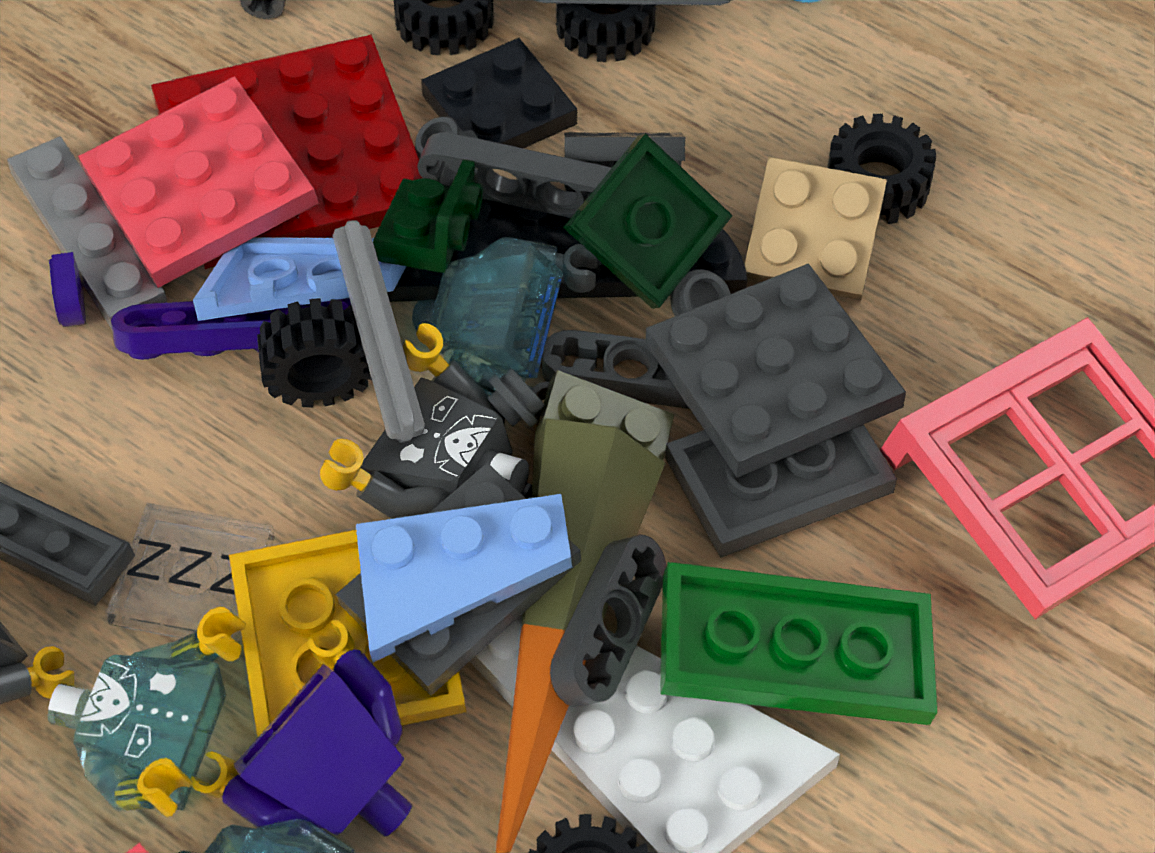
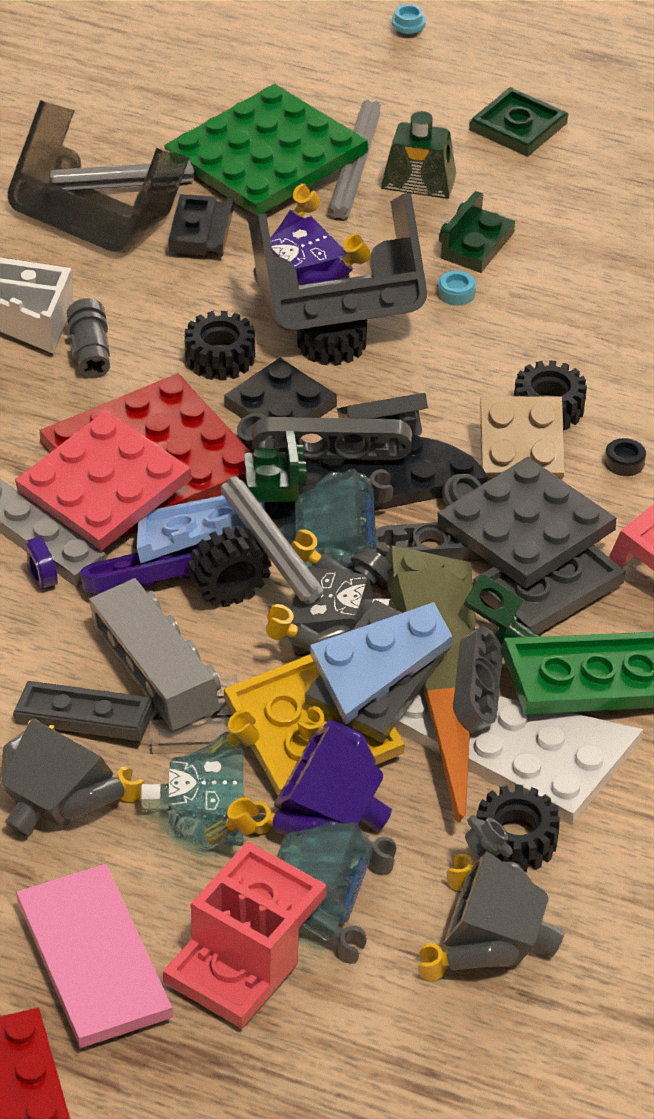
camera: 15 degrees left, 10 degrees down
(160, 475) = (155, 653): none -> light grey brick
(648, 221) = (418, 447): dark green tile -> none
(681, 529) = (504, 617): none -> dark green bracket
(962, 285) = (625, 457): none -> black tile

